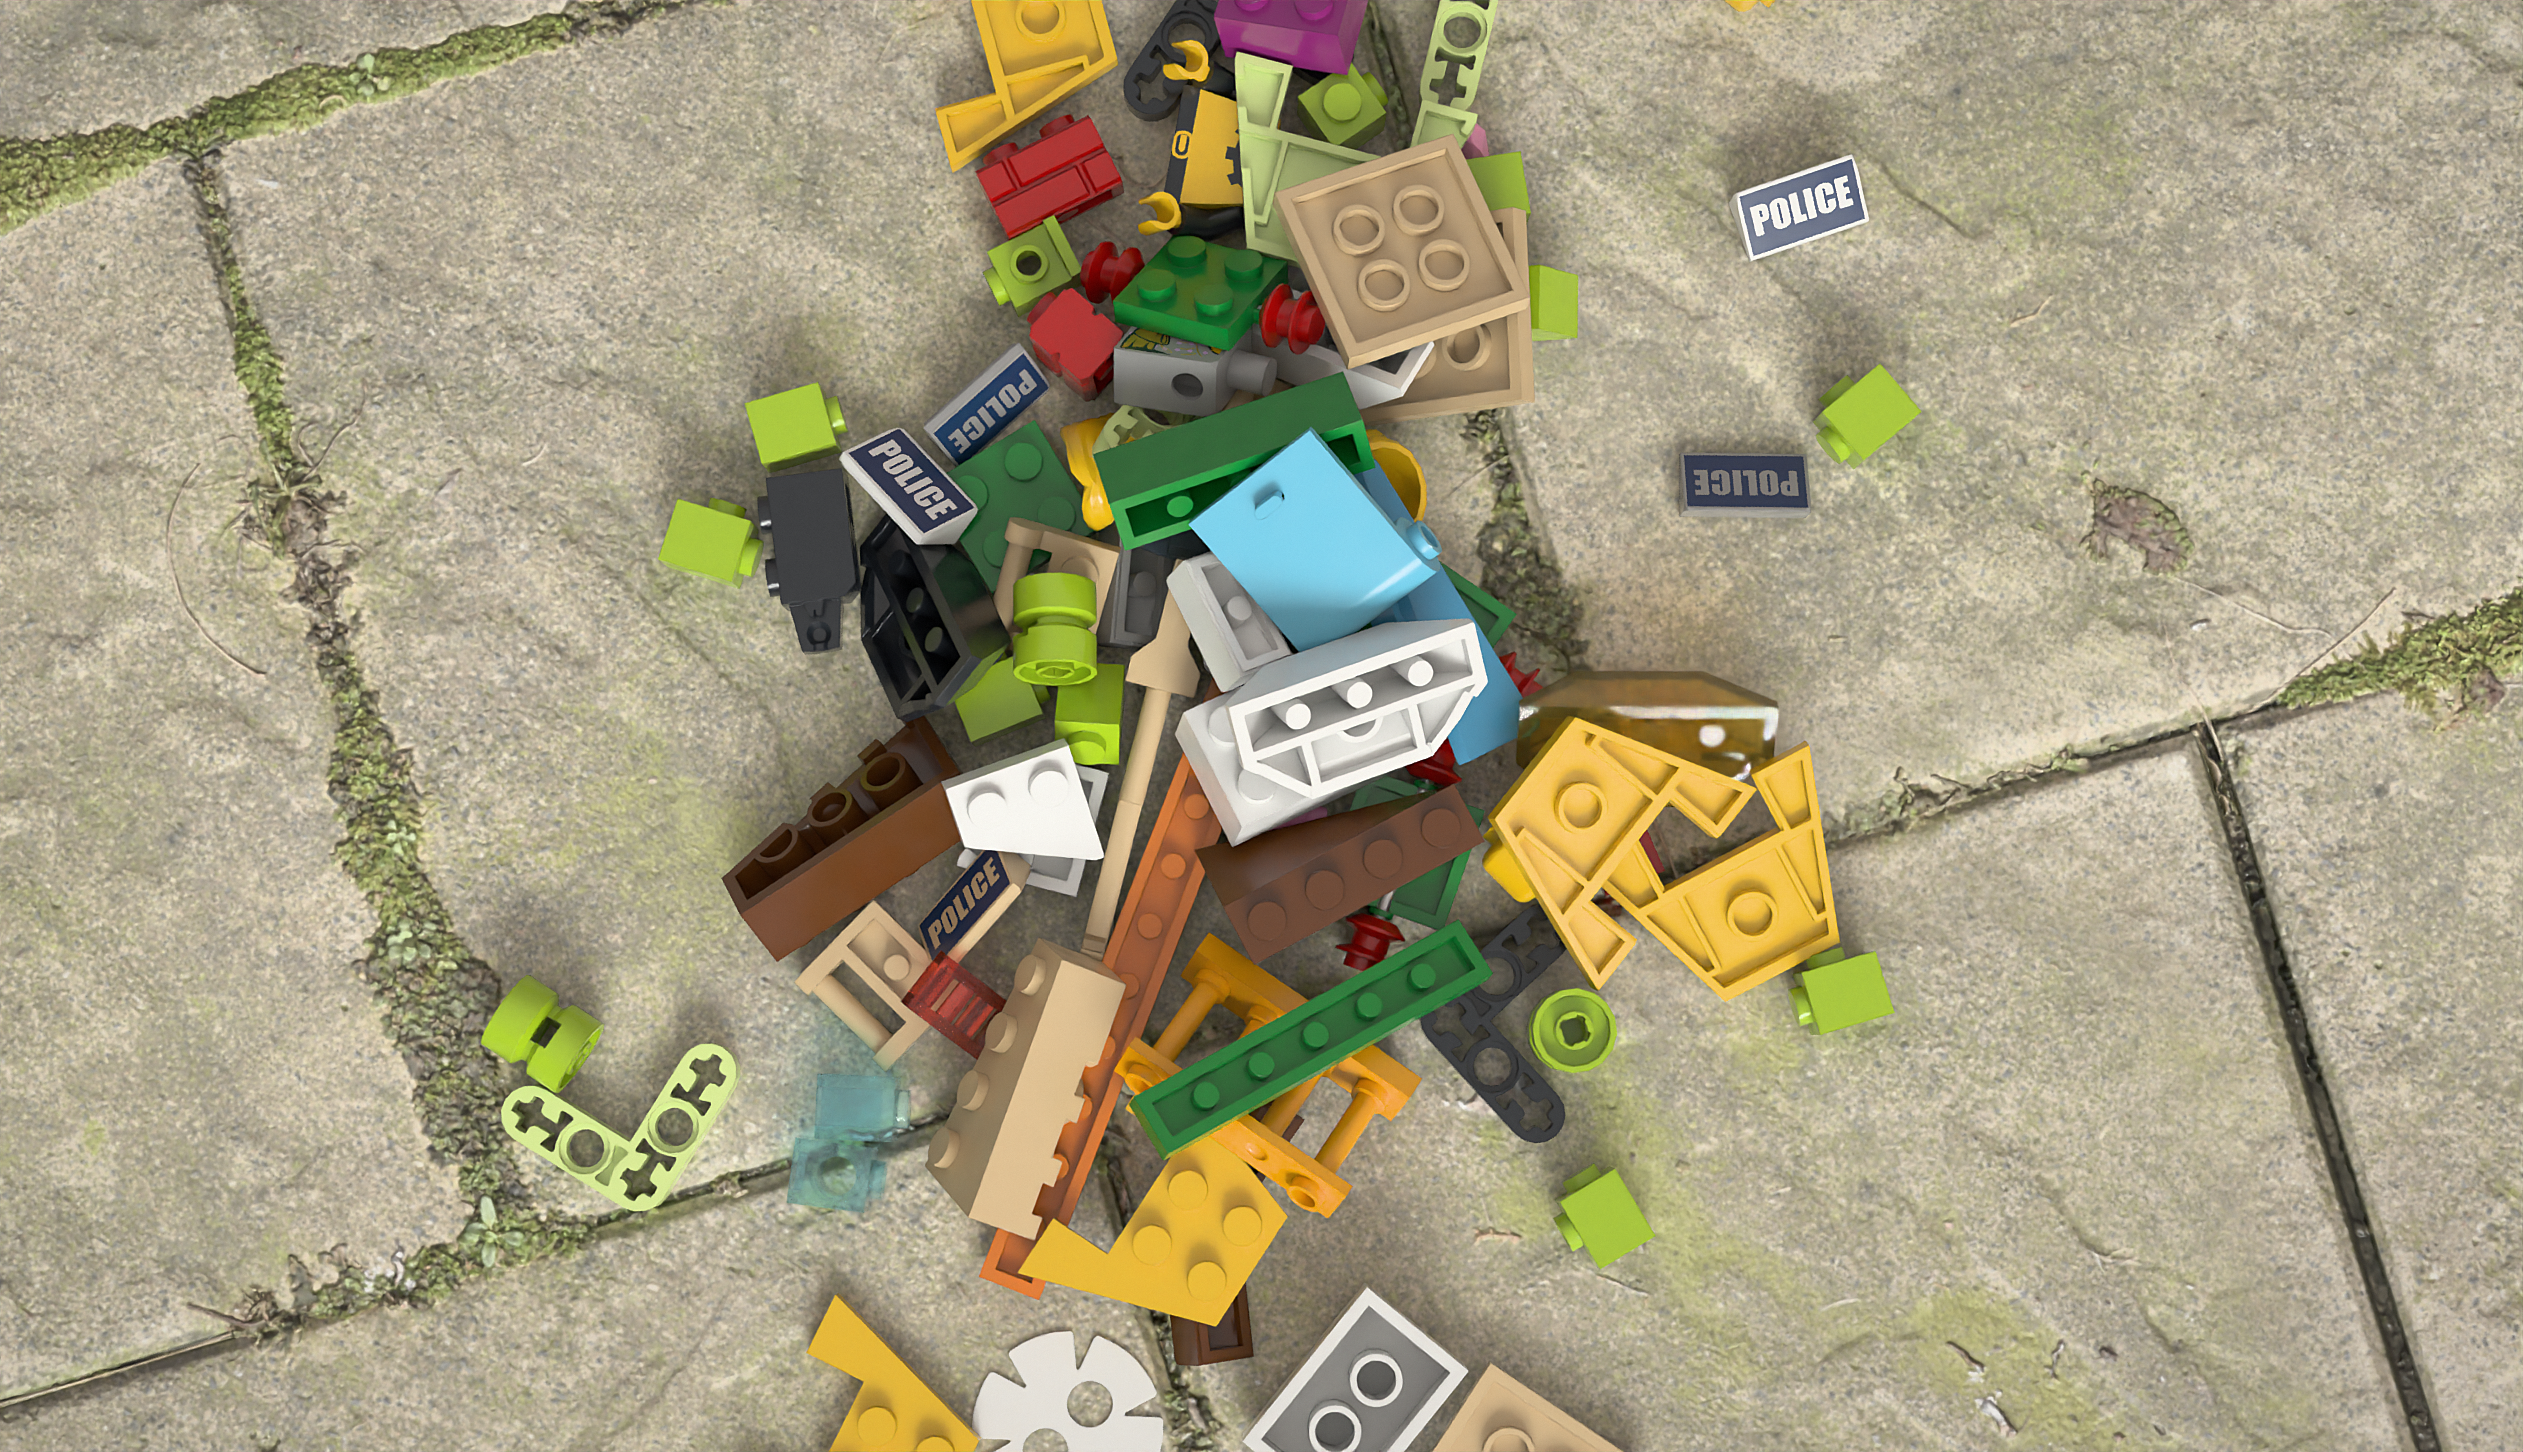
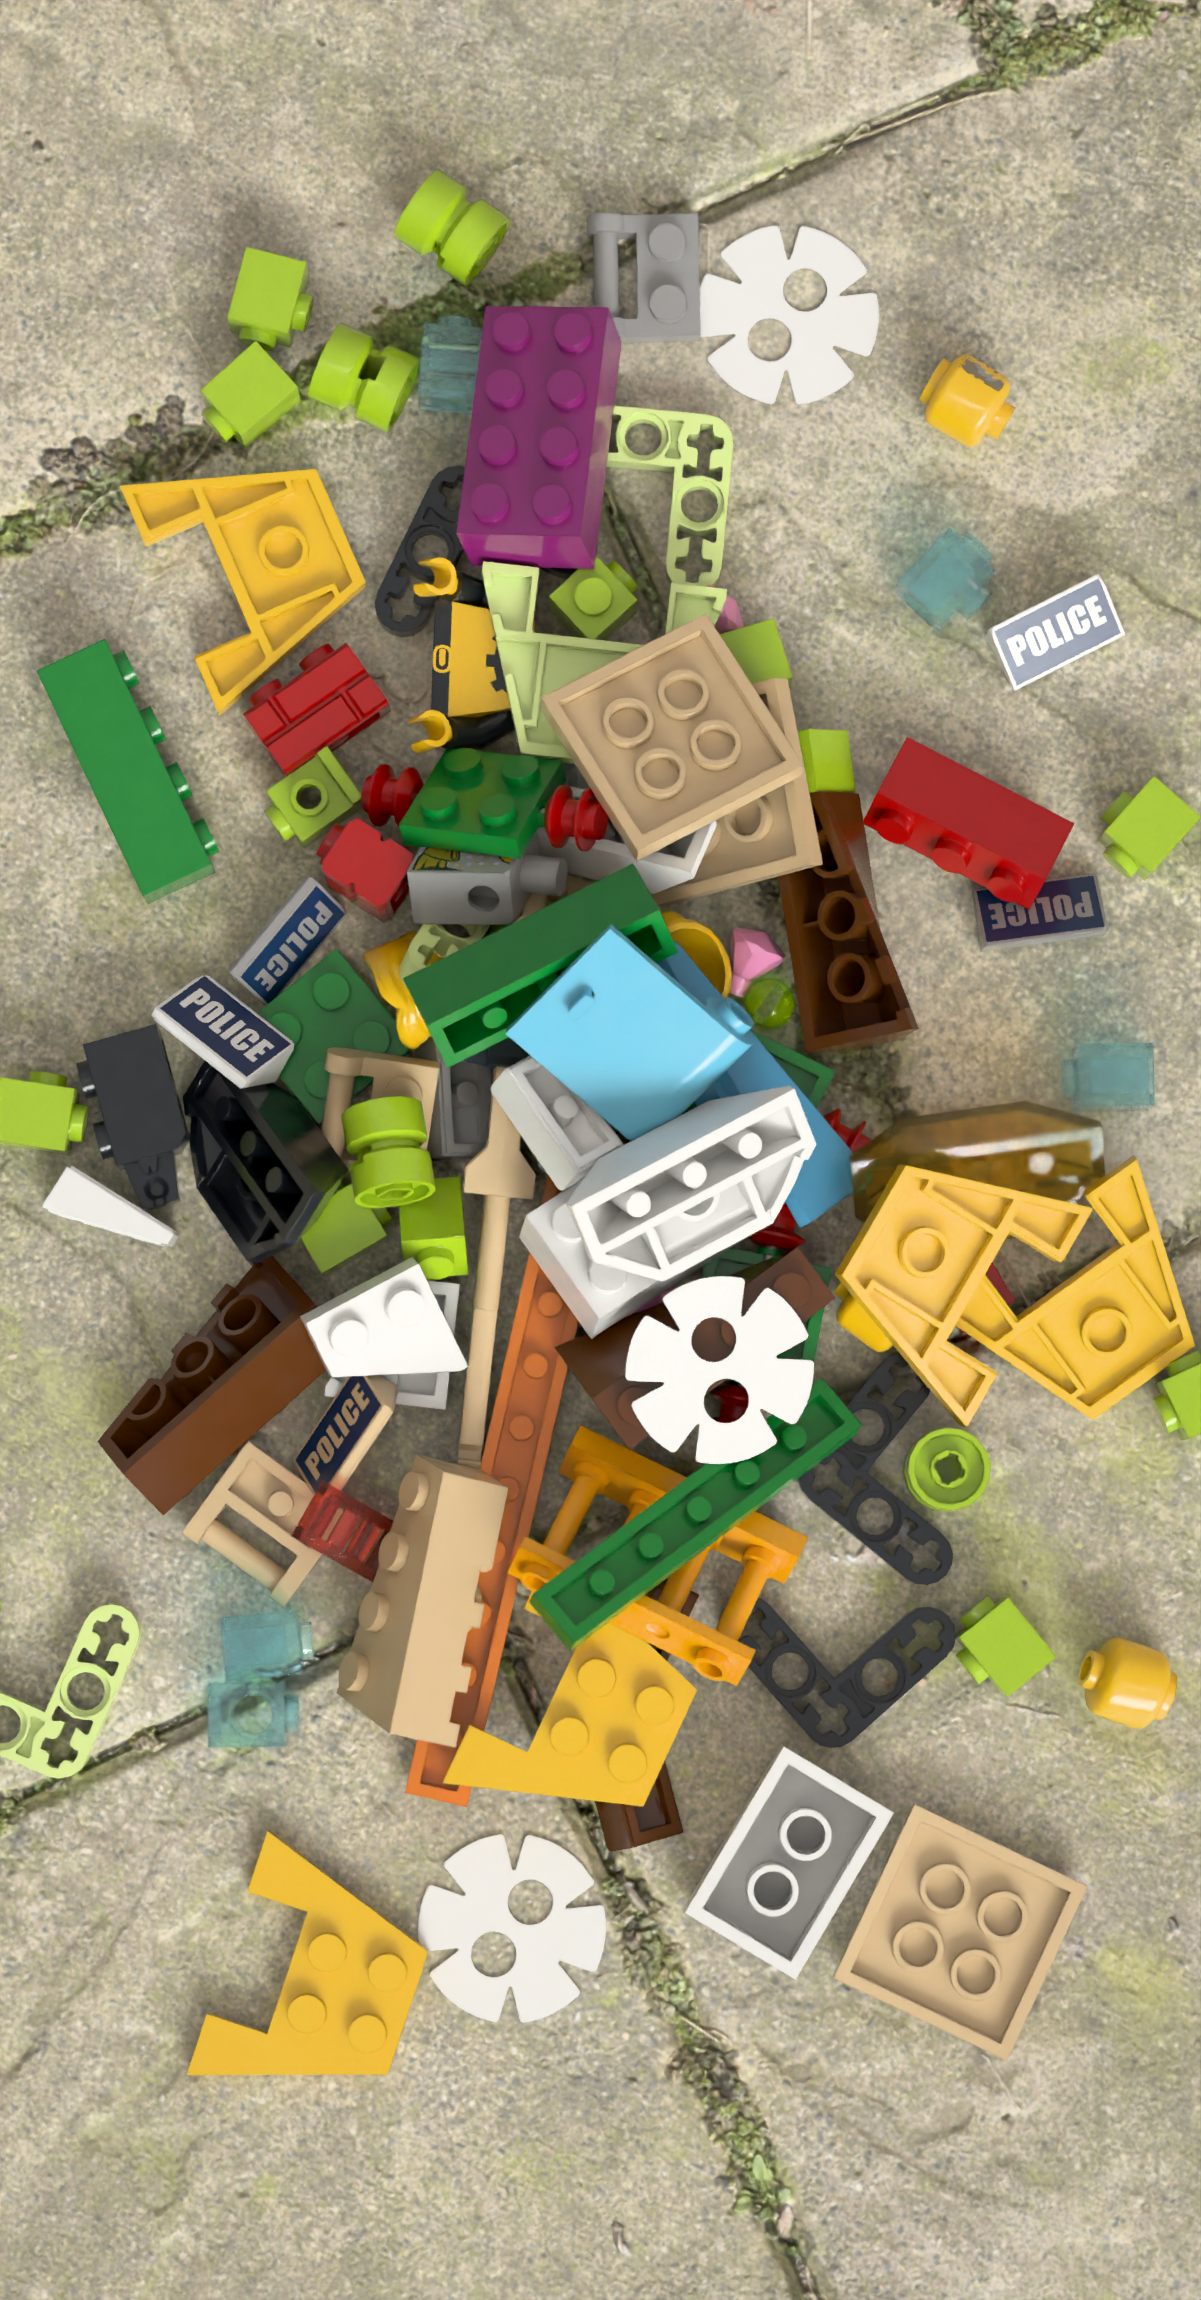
camera: 10 degrees left, 0 degrees up
(753, 639) = (91, 1203): none -> white slope
(796, 426) = (104, 989): lime brick -> none
(851, 212) = (126, 770): none -> green brick
(1307, 876) = (668, 1357): none -> white piece
(1440, 1232) = (847, 1685): none -> black beam
(1449, 488) = (751, 956): none -> bright pink rock
(1470, 547) = (781, 1011): none -> clear neon green hinge
(1537, 492) = (836, 946): none -> reddish brown wedge
(1685, 385) = (967, 823): none -> red brick
(1700, 140) = (948, 580): none -> clear light blue brick
(1723, 1272) = (1127, 1682): none -> yellow head
(1792, 659) = (1109, 1077): none -> clear light blue brick

